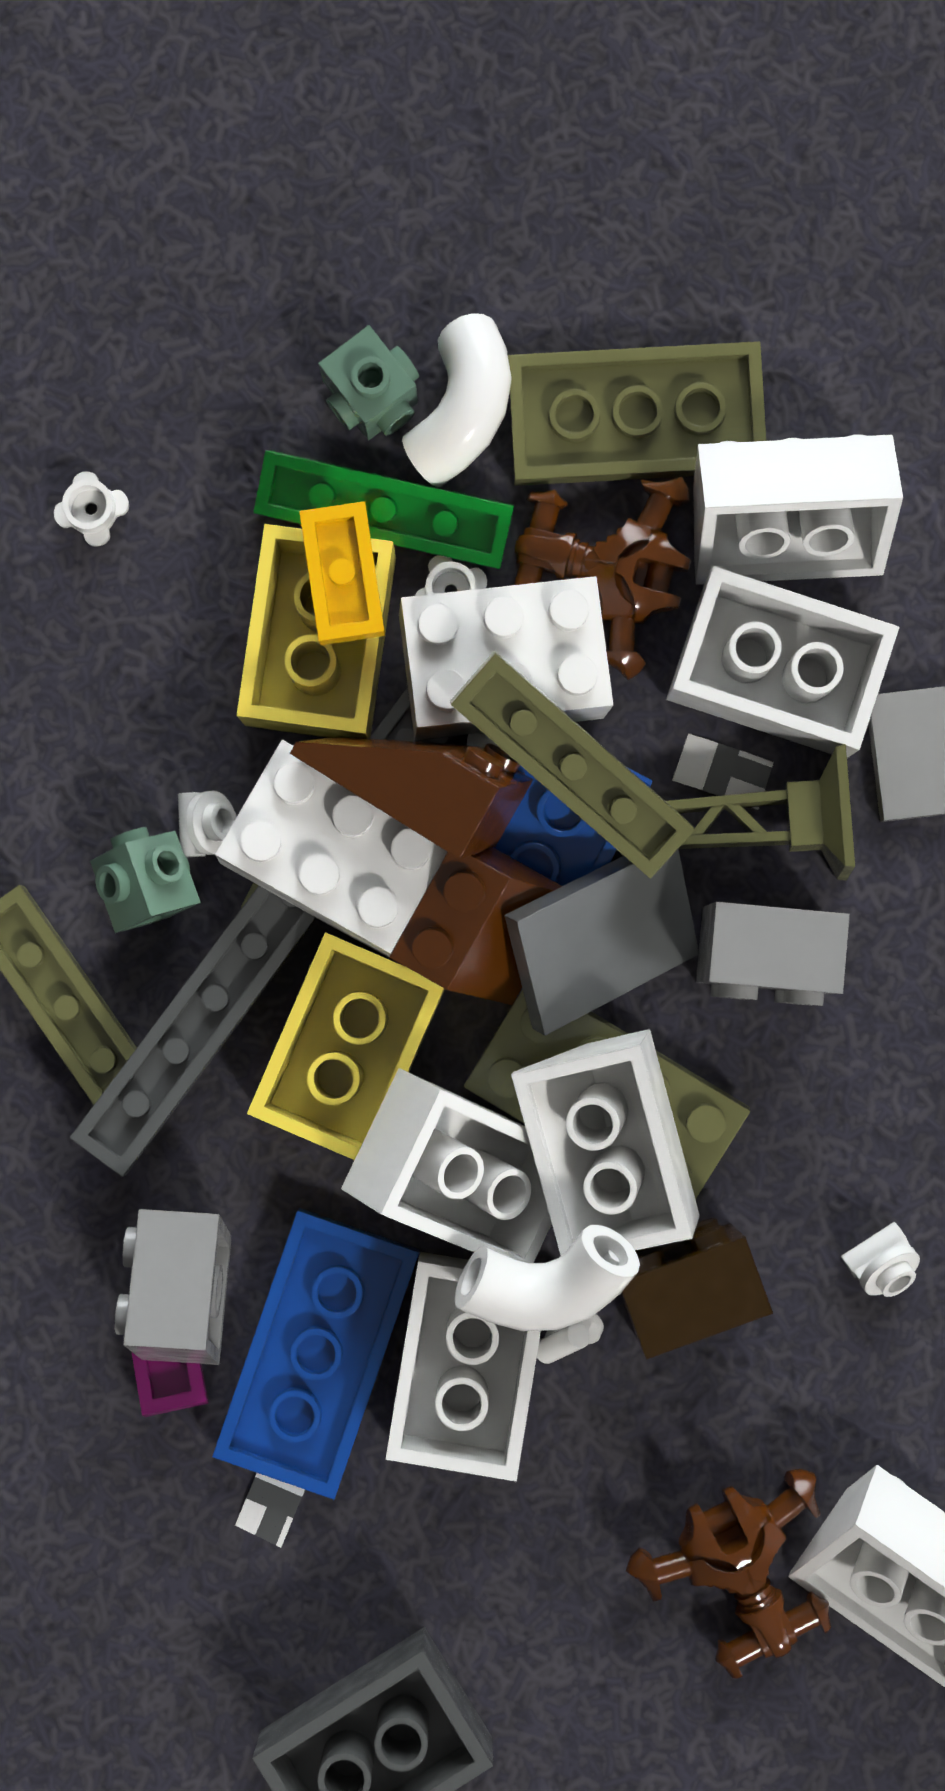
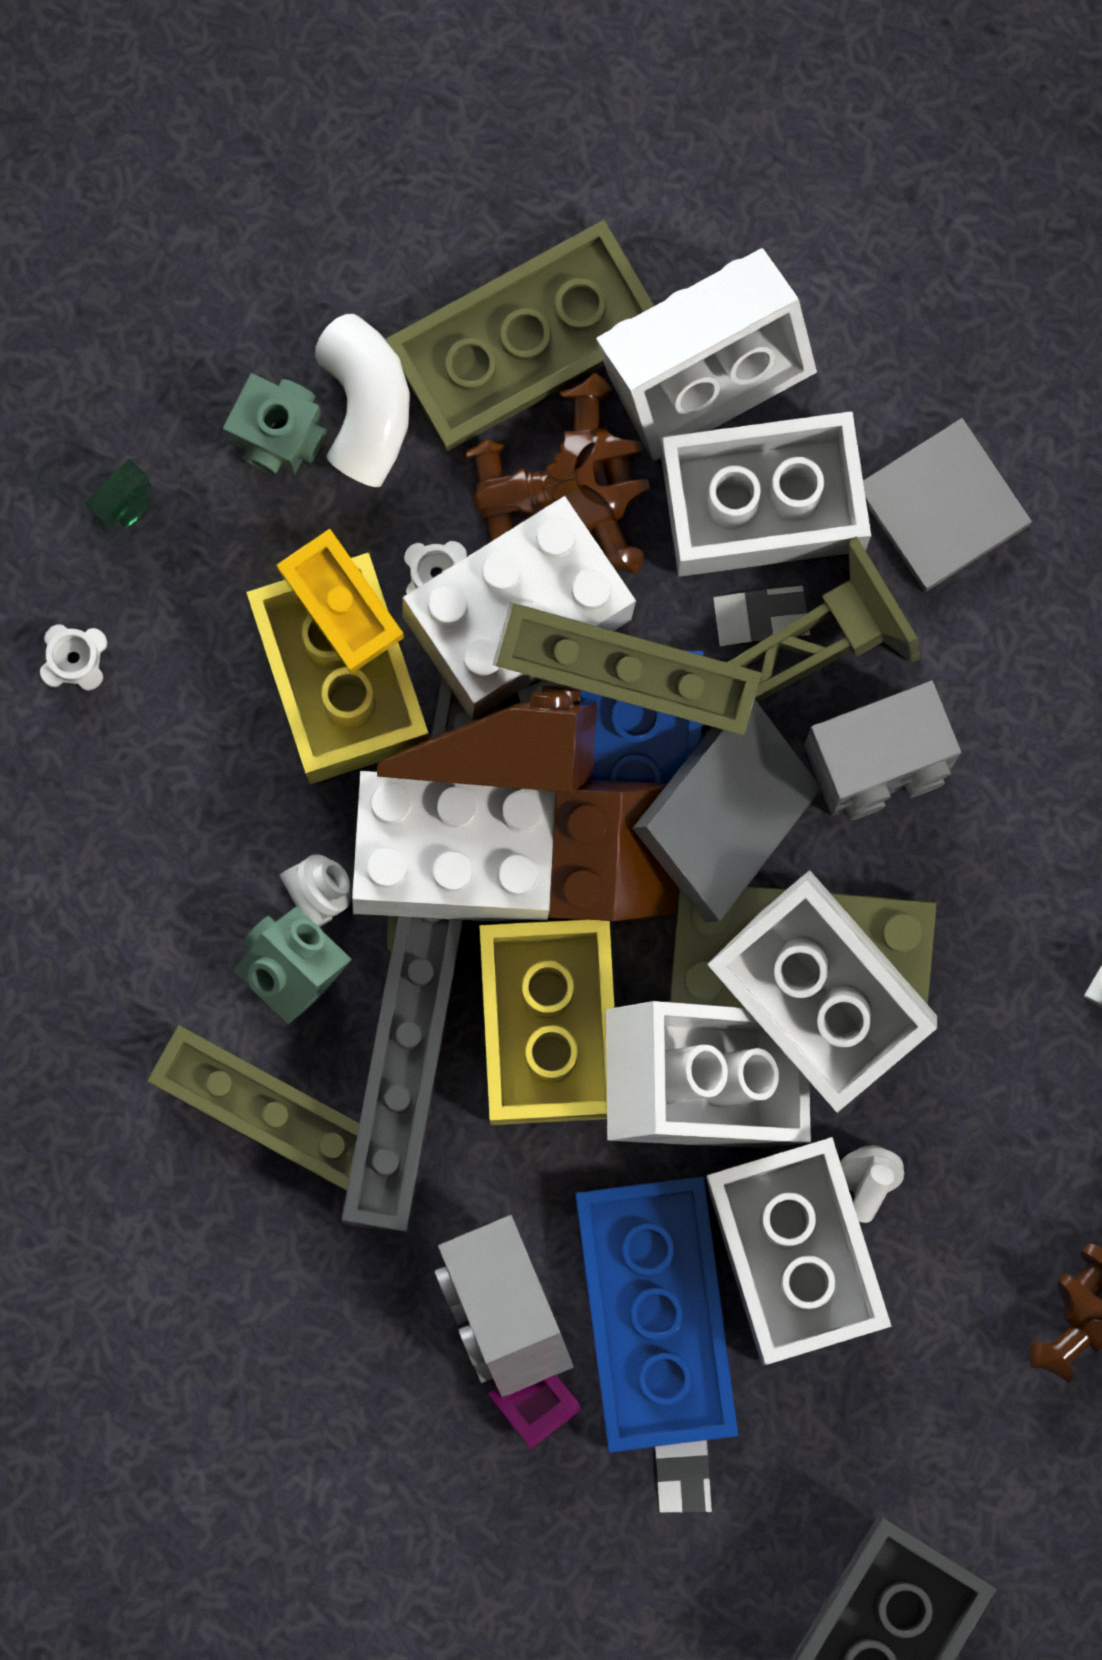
camera: 30 degrees left, 5 degrees down
(200, 383) = (121, 497): none -> clear green plate
(397, 509) = (361, 521): green plate -> none
(550, 1292) = (836, 1140): white cylinder -> none
(694, 1289) = (960, 1083): dark brown piece -> none

